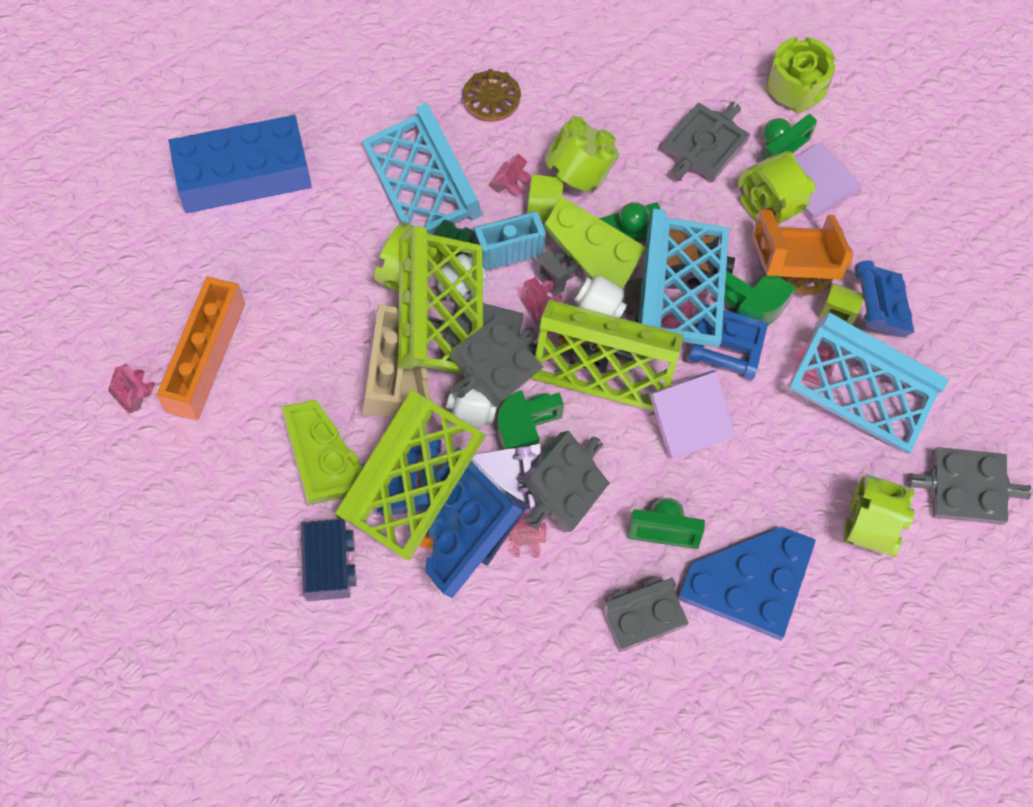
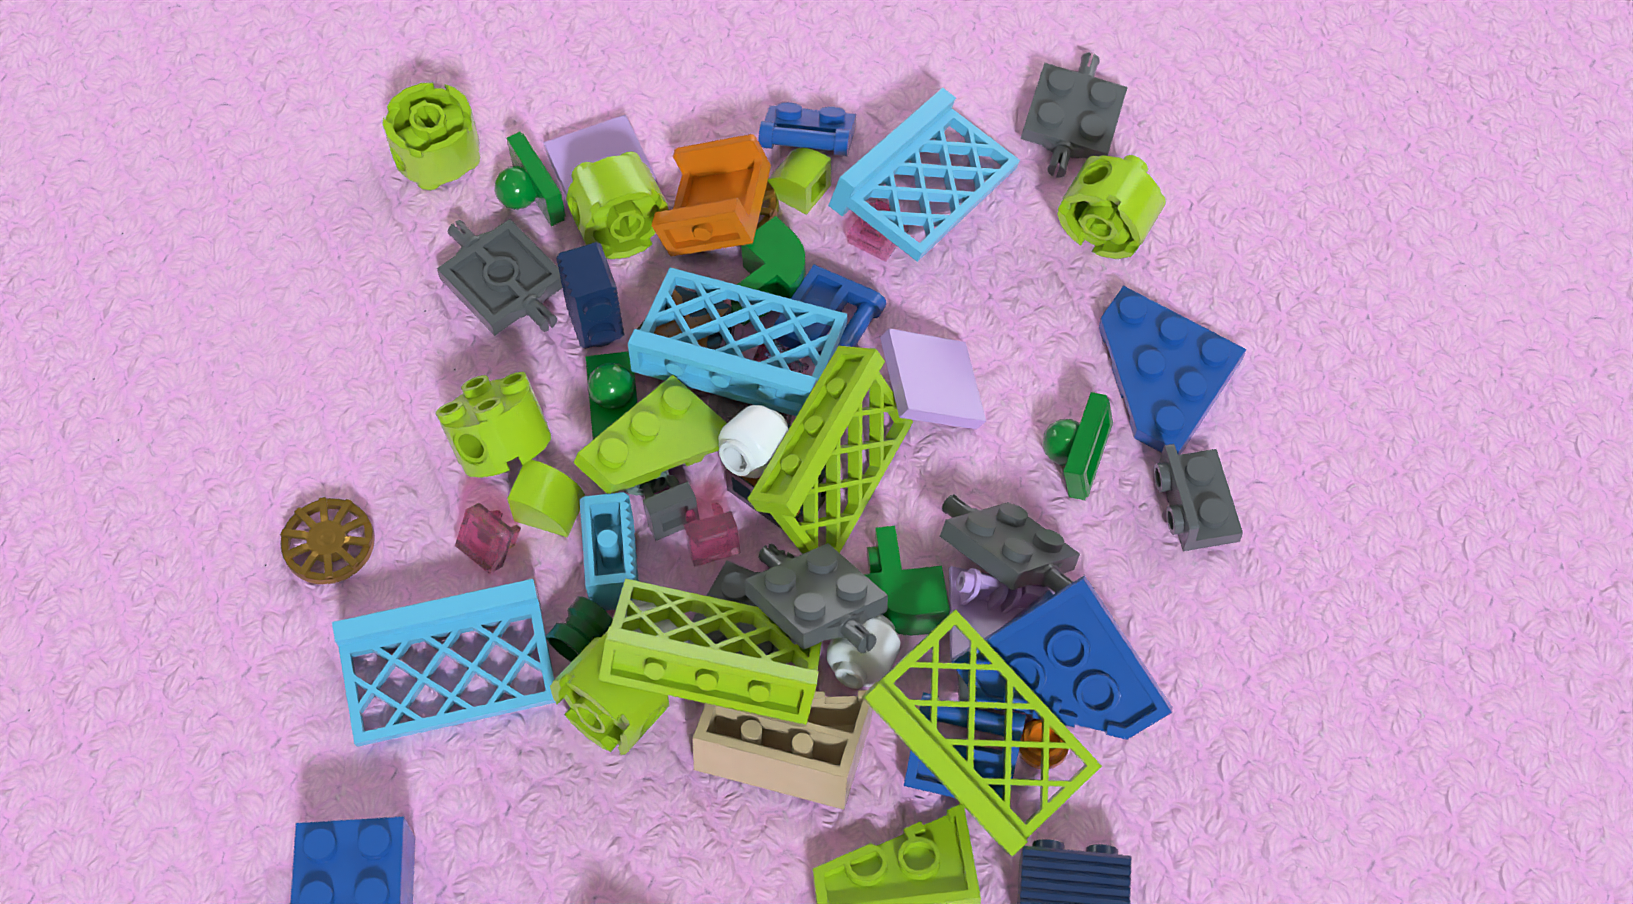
camera: 75 degrees left, 5 degrees down
(696, 188) = (590, 295): none -> dark blue brick

